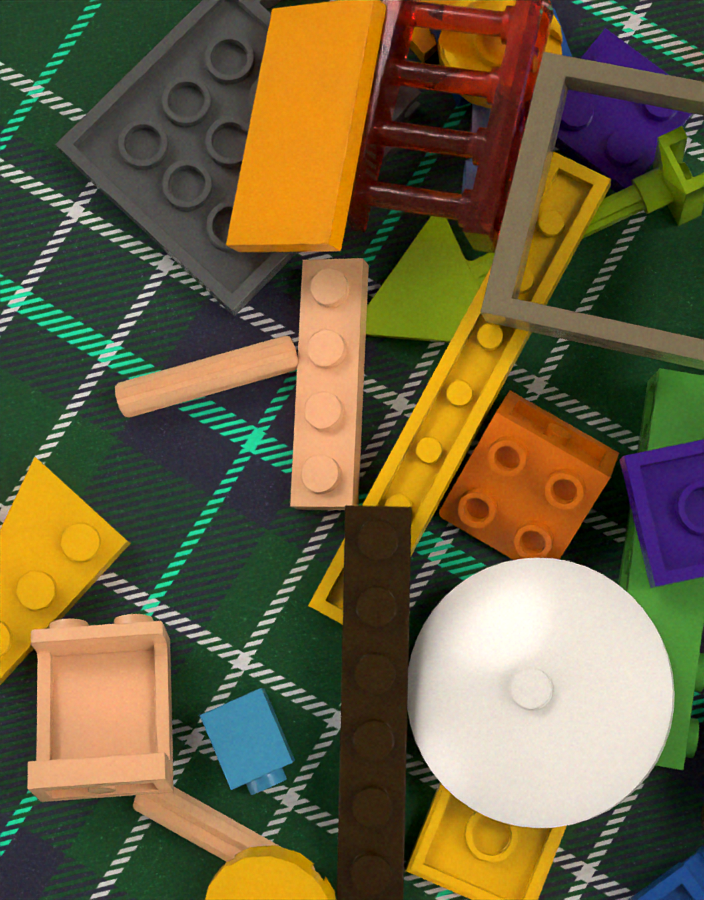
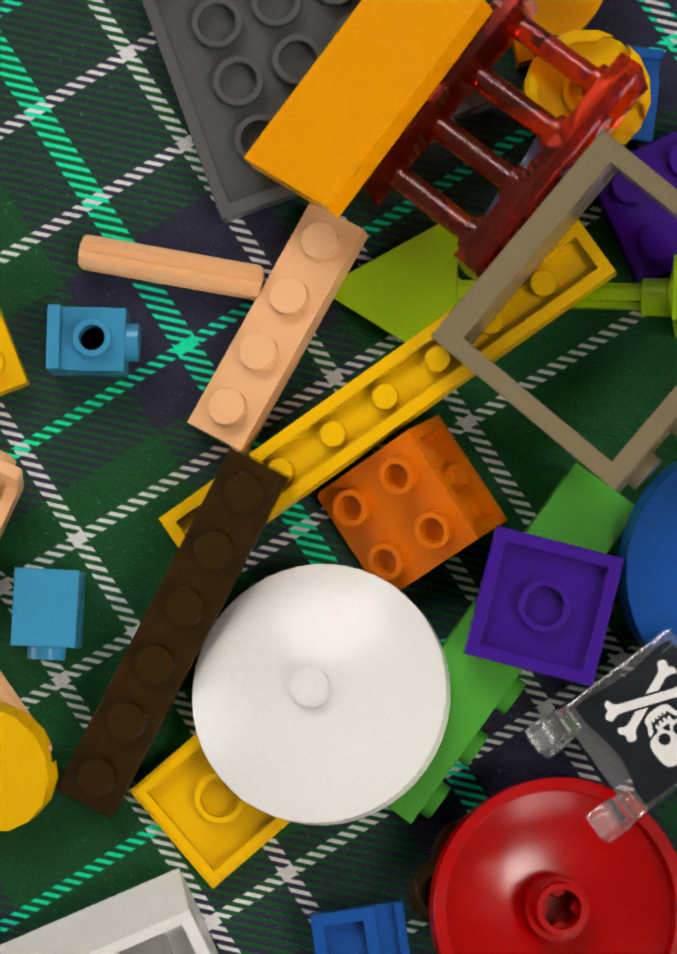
camera: 25 degrees right, 5 degrees up
(159, 499) = (64, 341): none -> dark azure brick

